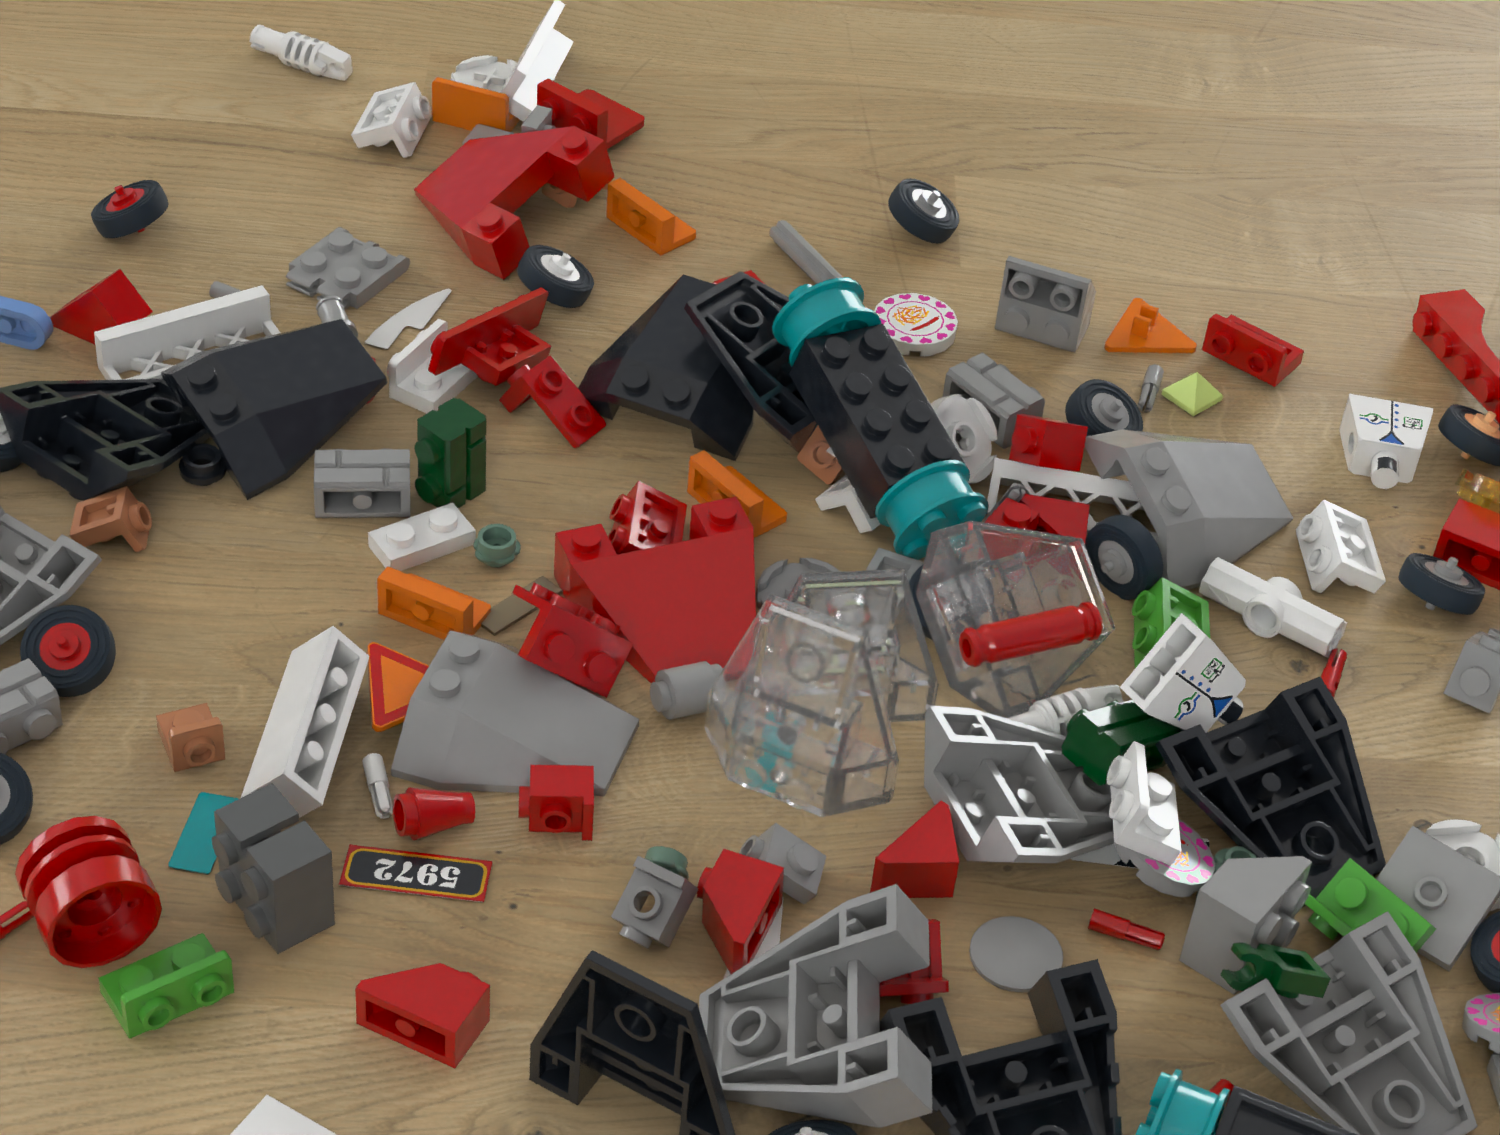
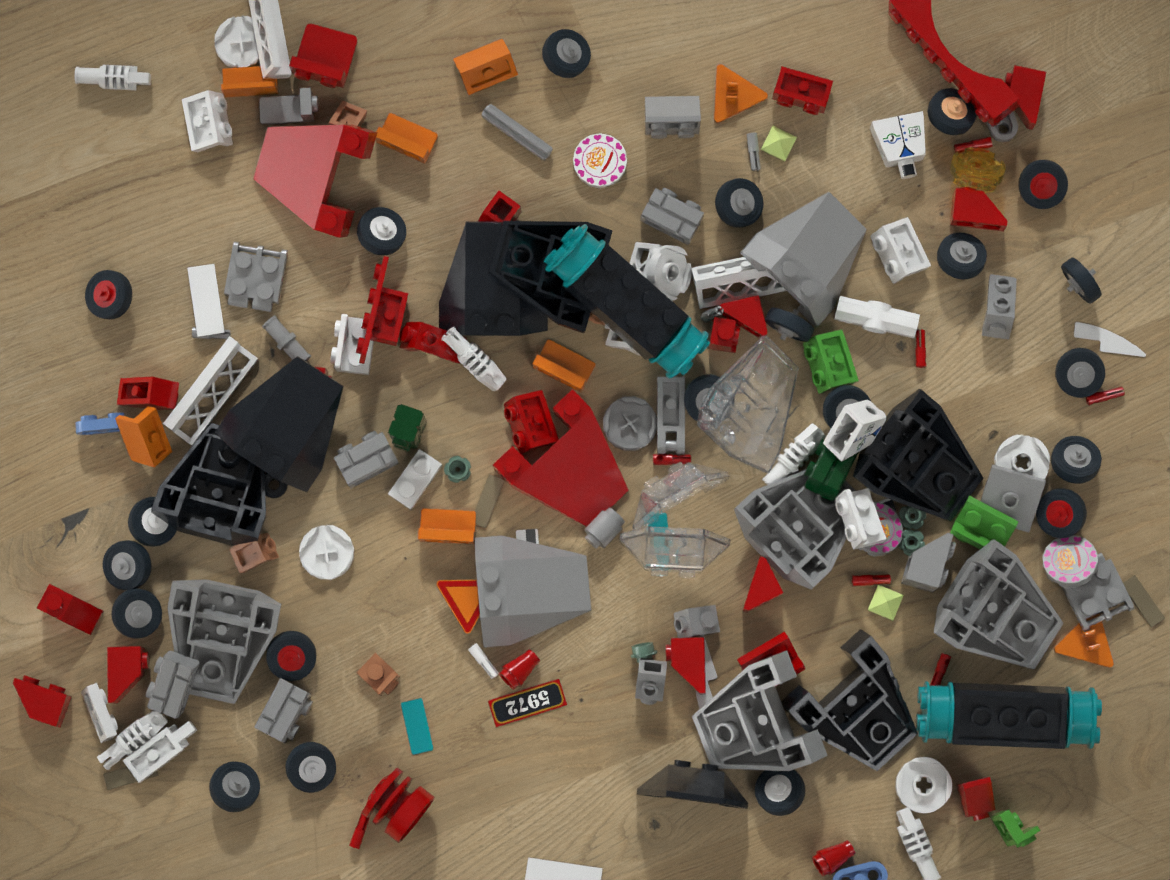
camera: 15 degrees left, 40 degrees up
(57, 335) = (145, 437): none -> orange panel
(167, 985) = (453, 825): bright green bracket -> none
(222, 569) = (326, 552): none -> white tile
(258, 264) = (205, 300): none -> white sticker
(274, 875) = (471, 750): dark grey piece -> none
(309, 720) = (435, 651): white brick -> none
(414, 316) = (313, 296): white sticker -> none
(426, 1009) = (579, 786): red slope -> none
(559, 799) = (576, 635): red brick -> none
(573, 641) = (536, 528): red bracket -> none
(604, 434) = (475, 360): none -> white hinge
(803, 194) = (485, 66): none -> orange panel
(1014, 952) = (824, 617): light grey piece -> none
(1030, 634) = (764, 420): red axle -> none
(1048, 443) = (718, 258): red slope -> none
(1140, 972) = (885, 602): none -> yellowish green slope
(1287, 970) = (955, 595): dark green plate -> none

